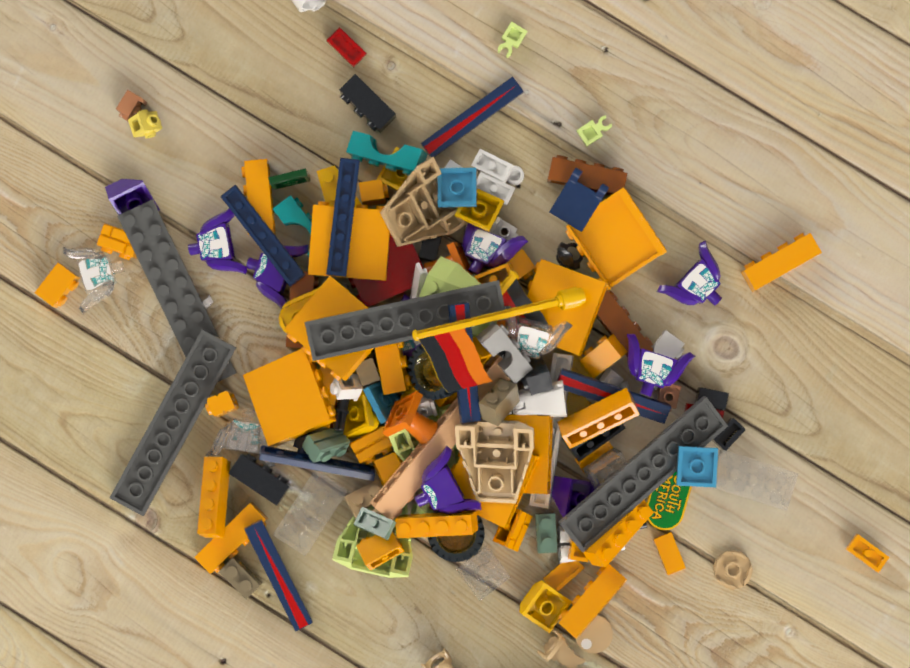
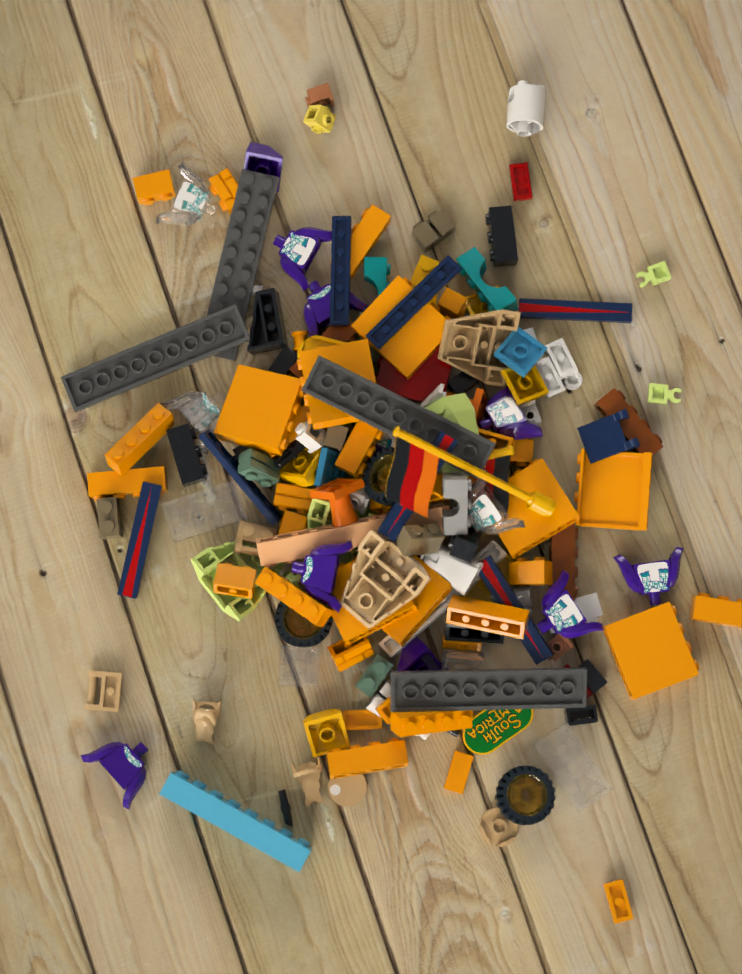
camera: 35 degrees right, 5 degrees down
(221, 404) = (204, 373): light orange brick -> none
(239, 323) = (268, 324): none -> black wedge
(273, 315) = (299, 336): none -> light orange bush
(277, 344) = (284, 361): none -> black piece
(289, 179) = (396, 245): dark green tile -> none
(309, 142) = (433, 230): none -> dark tan piece
(375, 523) = (246, 557): plate -> none
(565, 258) = (561, 474): black piece -> none
(697, 466) = (535, 718): dark azure tile -> none
(742, 340) = (651, 650): none -> light orange brick
(749, 527) = (540, 795): none -> wheel

